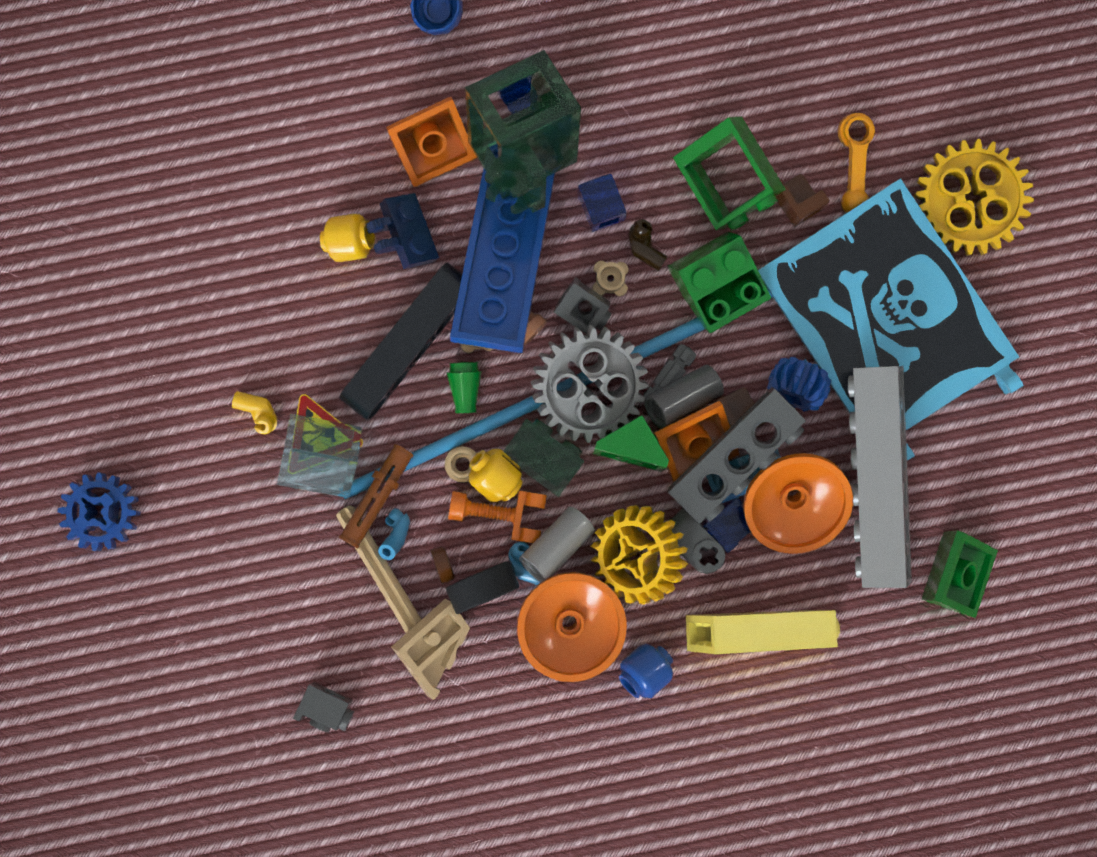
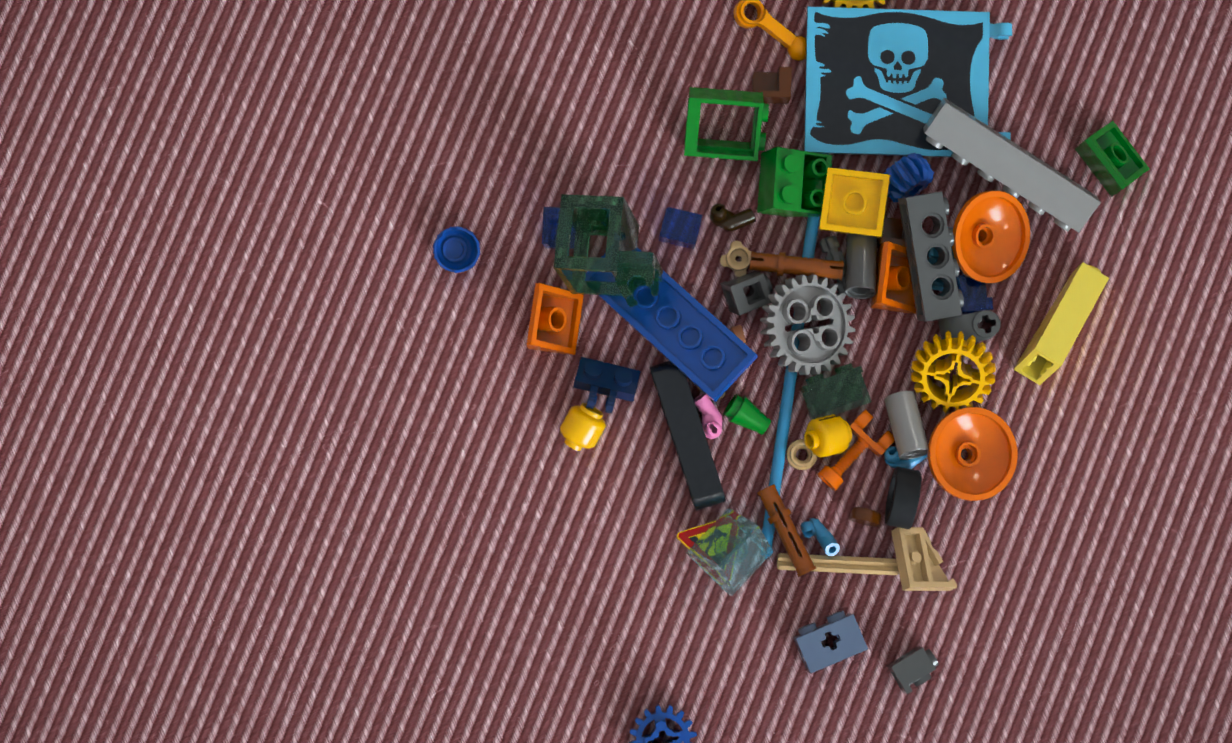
camera: 60 degrees left, 0 degrees up
(260, 409) = (664, 573): yellow arm -> none
(277, 610) = (848, 641): none -> sand blue brick
(438, 354) = (710, 416): none -> bright pink arm
(633, 322) = (795, 265): none -> dark orange pin
(633, 445) = (871, 322): green slope -> none
(646, 671) = (1036, 423): blue head -> none
(739, 347) = (854, 202): none -> yellow plate

